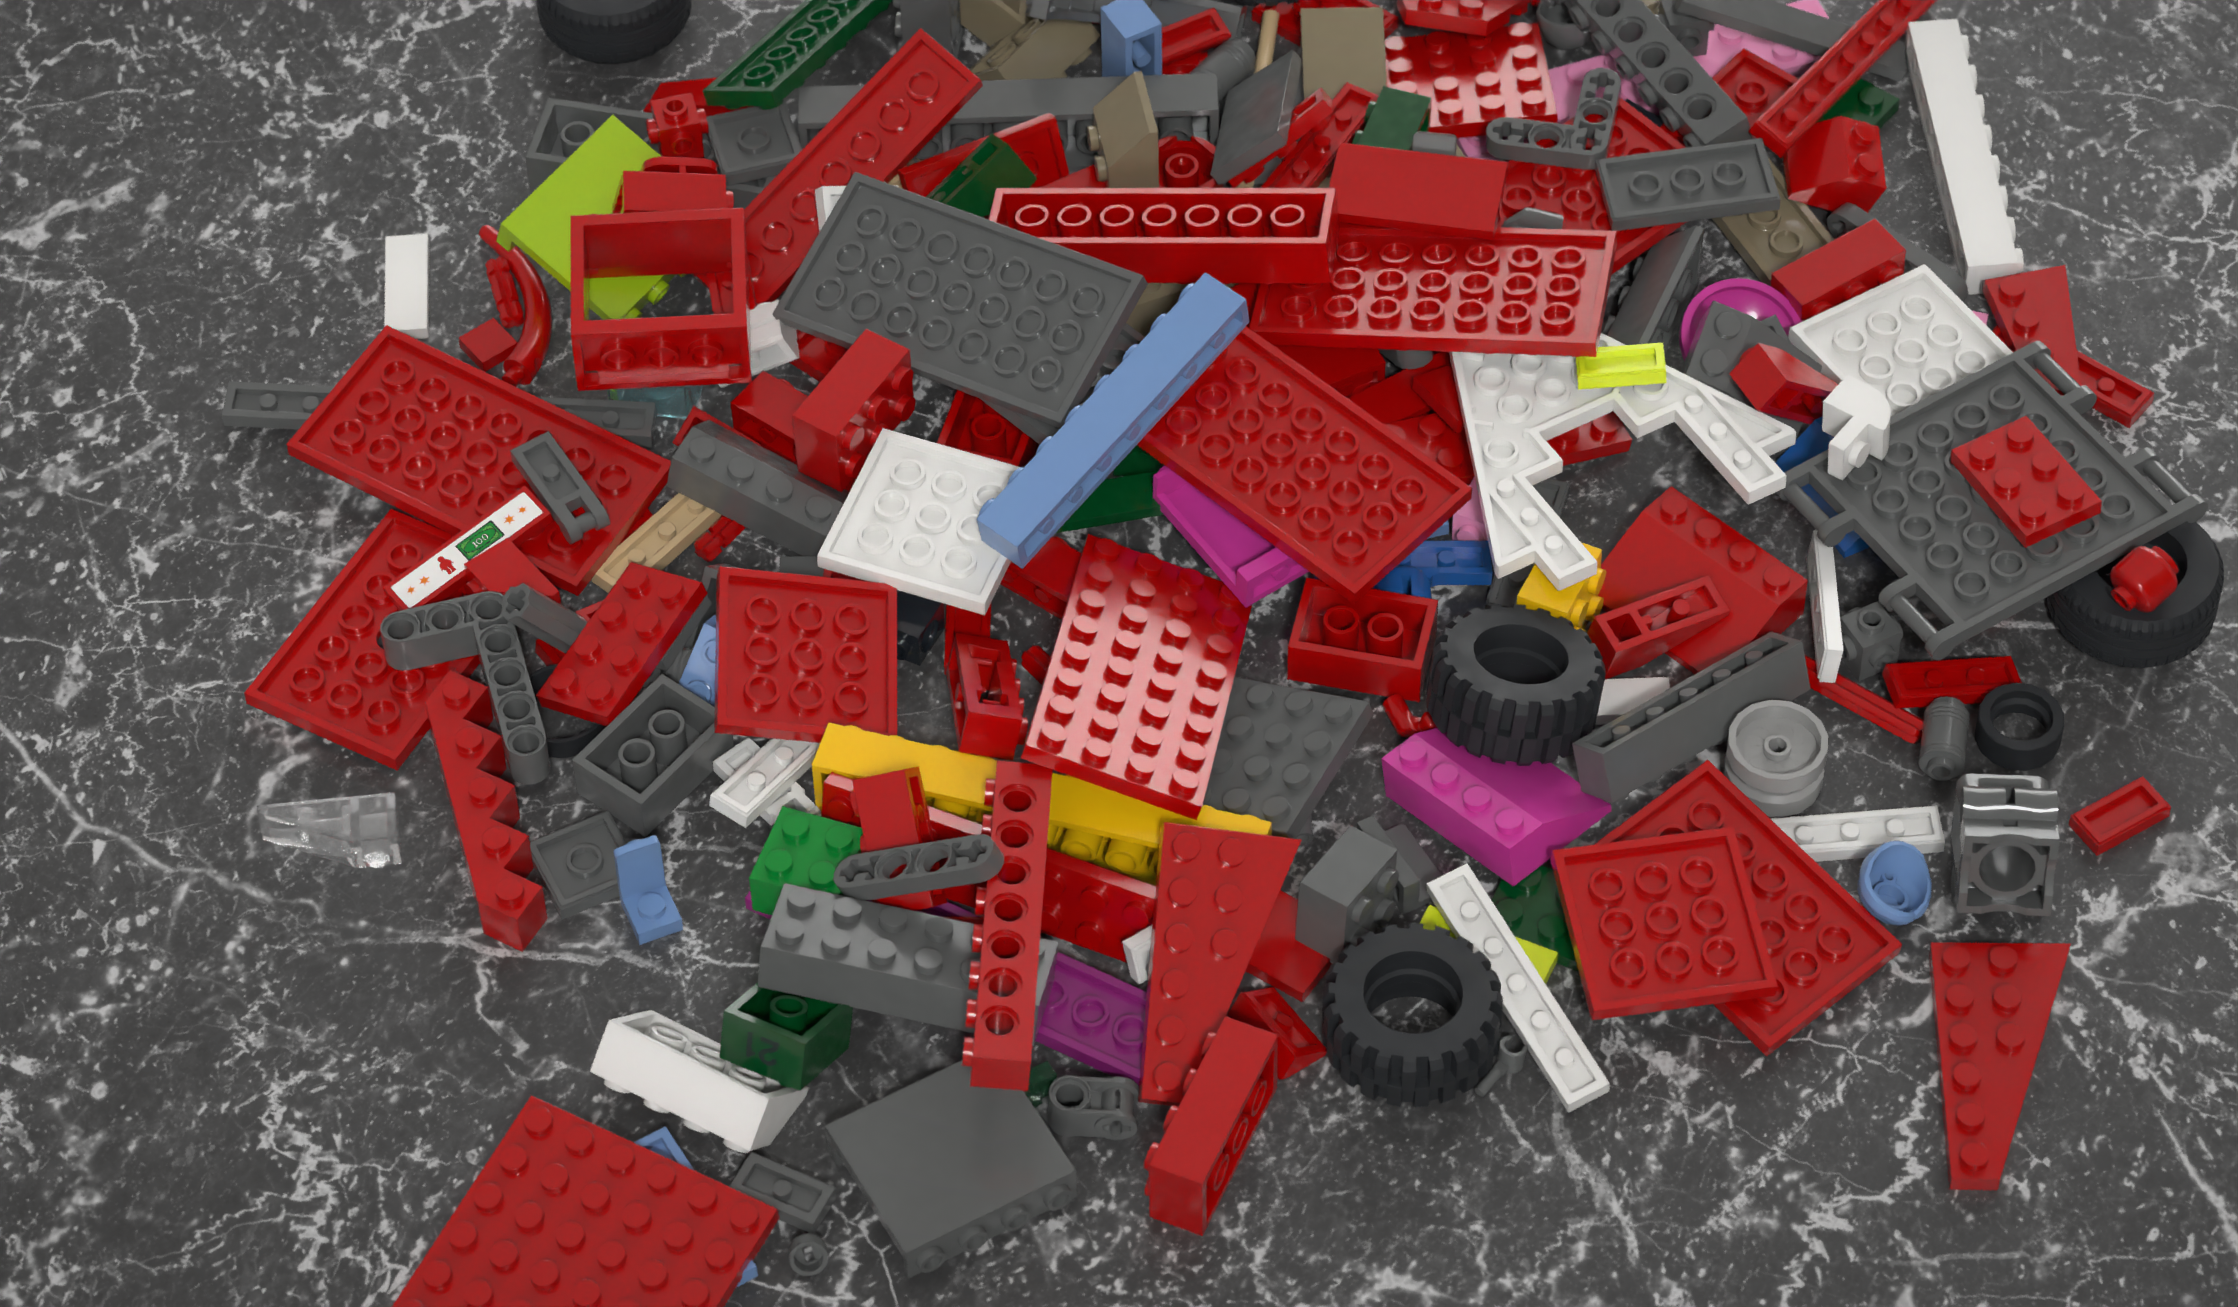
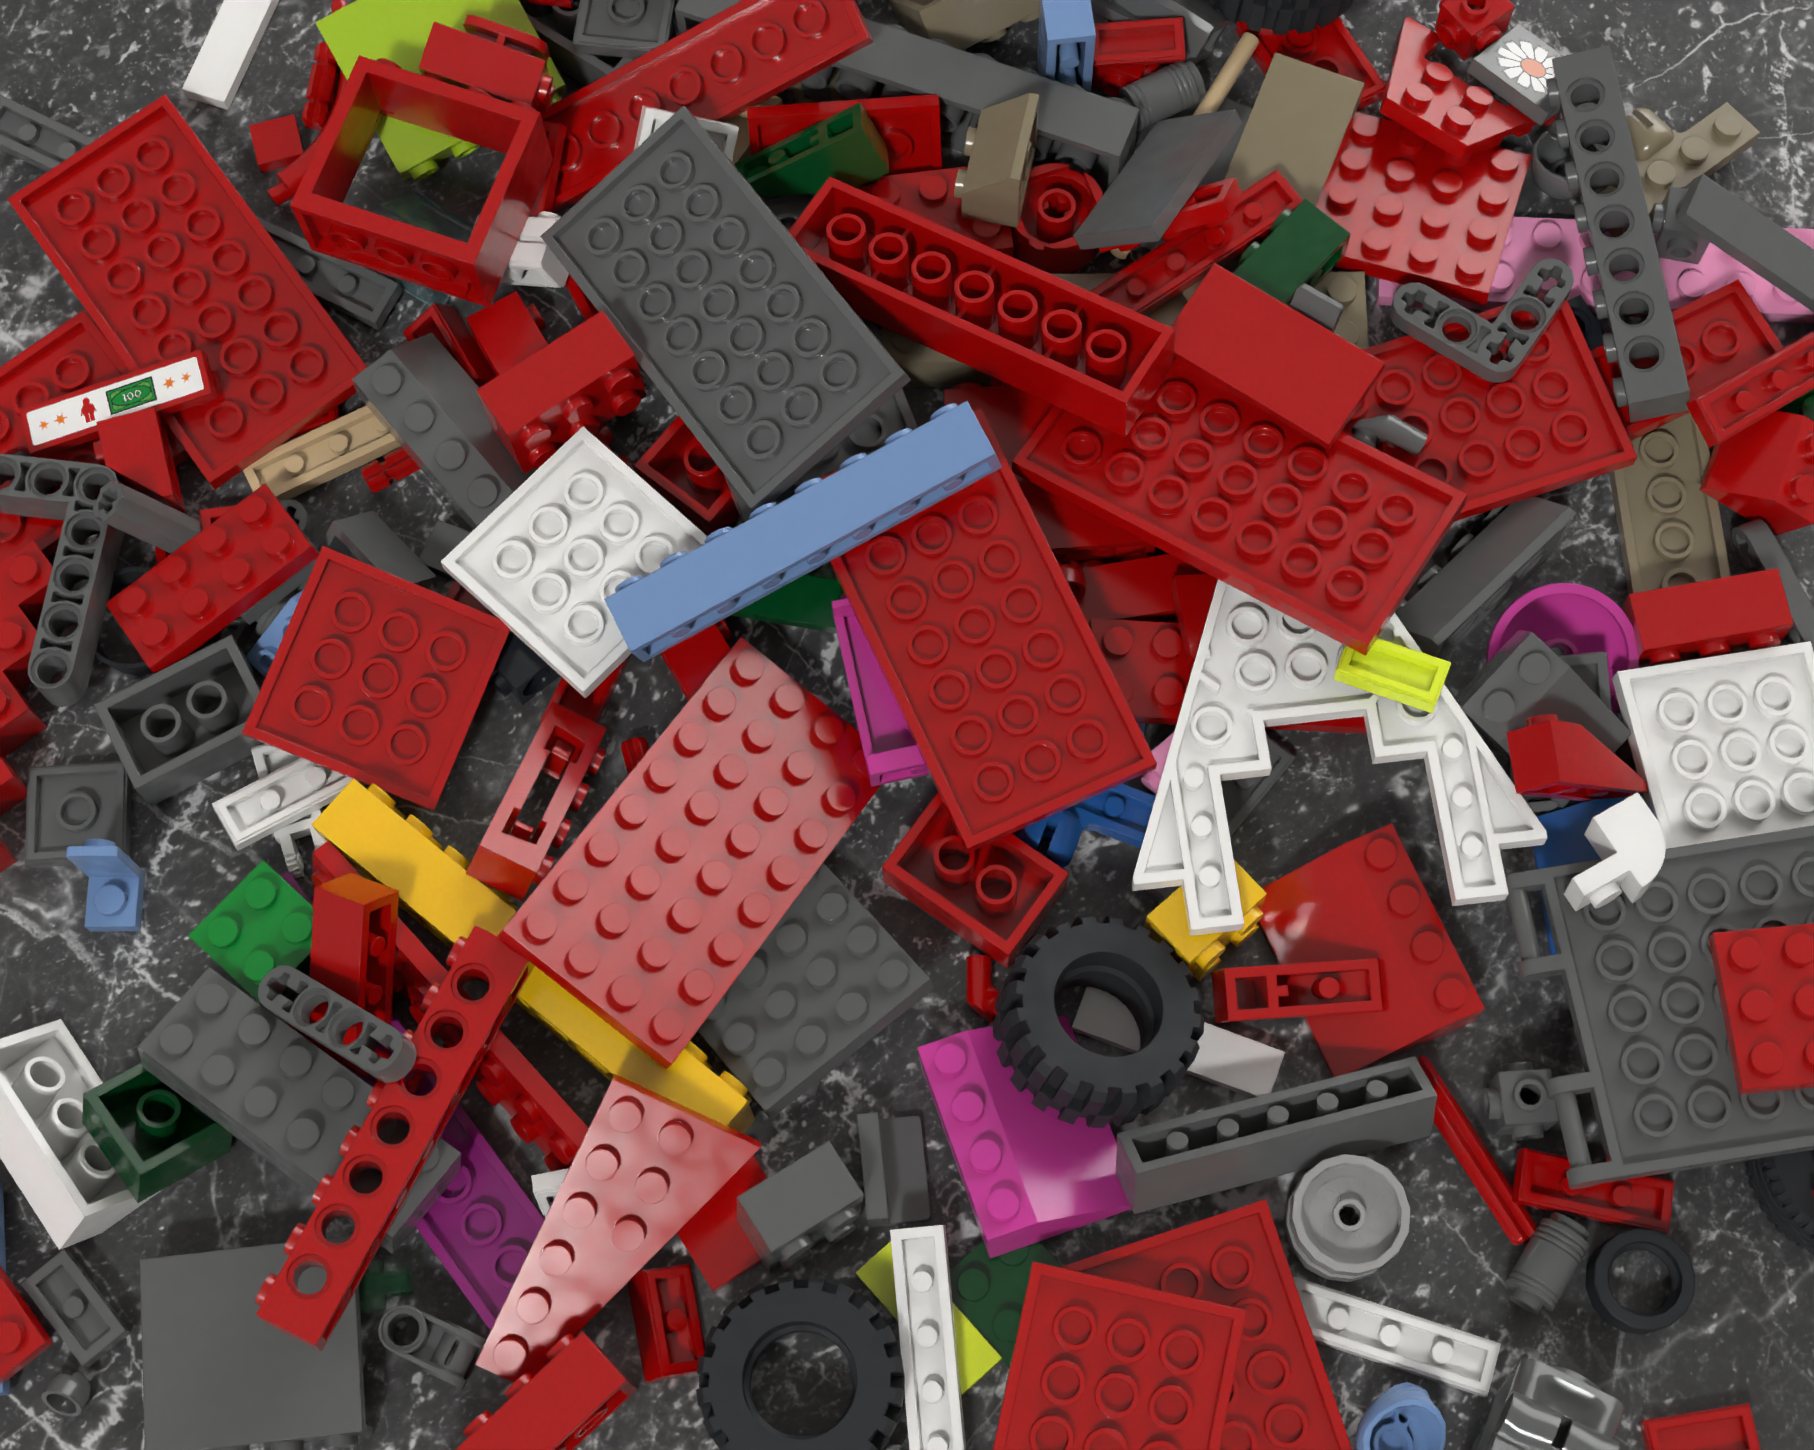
camera: 25 degrees right, 20 degrees up
(559, 486) = (237, 362): dark grey plate -> none
(1687, 184) = (1586, 446): dark grey tile -> none
(1824, 609) = (1488, 1051): white tile -> none

